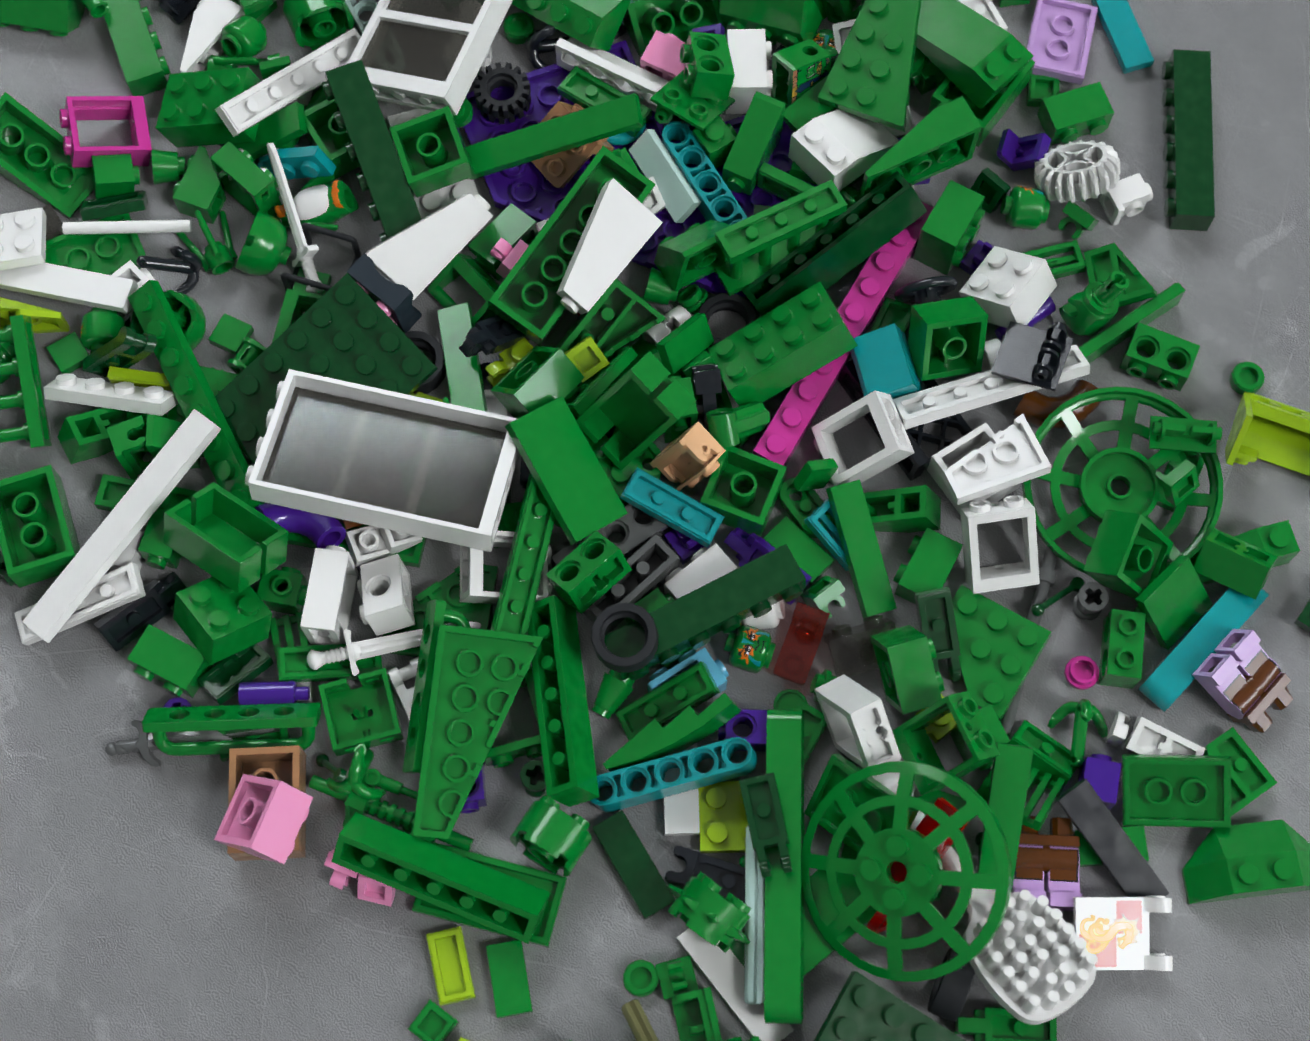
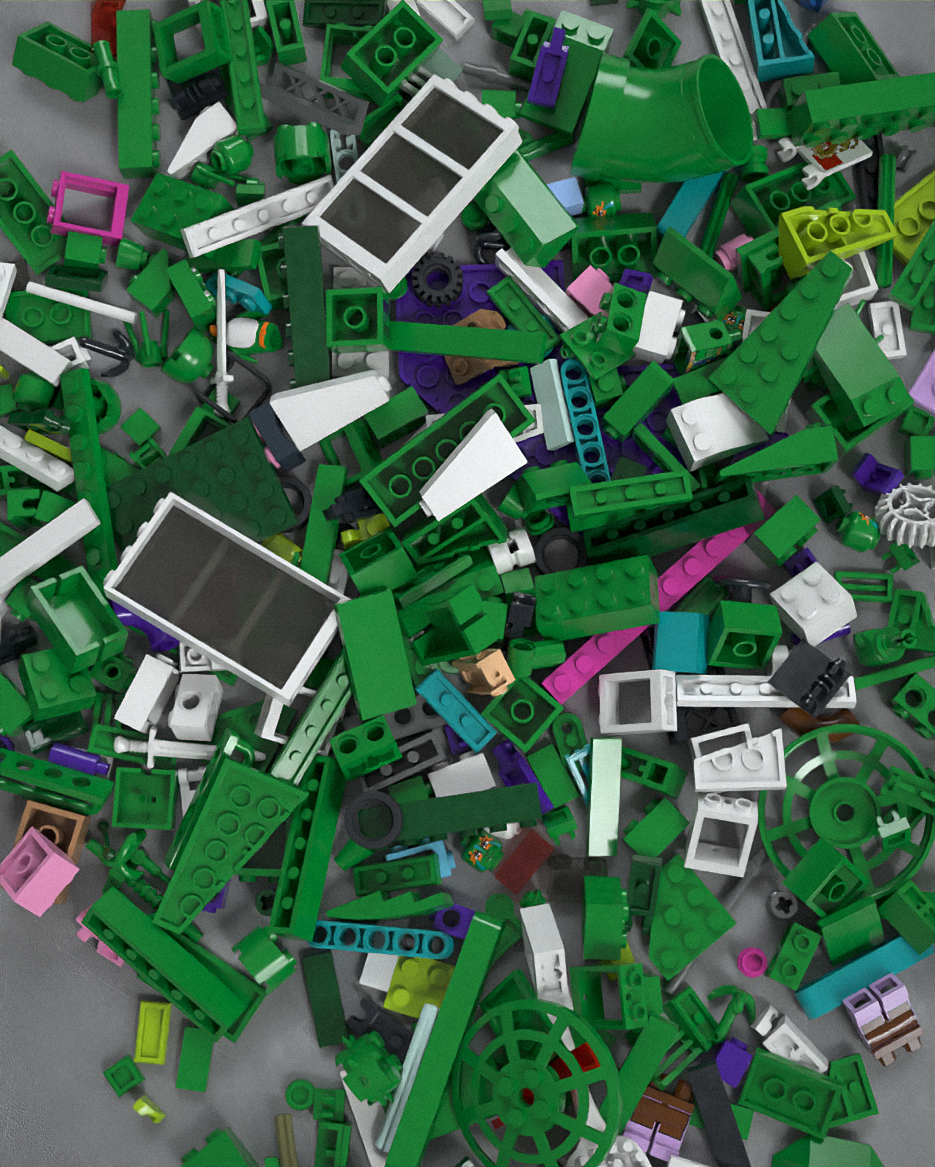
camera: 20 degrees right, 10 degrees up
(508, 255) = (394, 438): bright pink tile -> none
(587, 357) = (426, 556): lime plate -> none
(685, 343) = (515, 569): green tile -> none
(765, 820) = (439, 1010): dark green hinge -> none
(815, 474) = (587, 720): green tile -> none
(1075, 585) = (775, 884): dark green hinge -> none

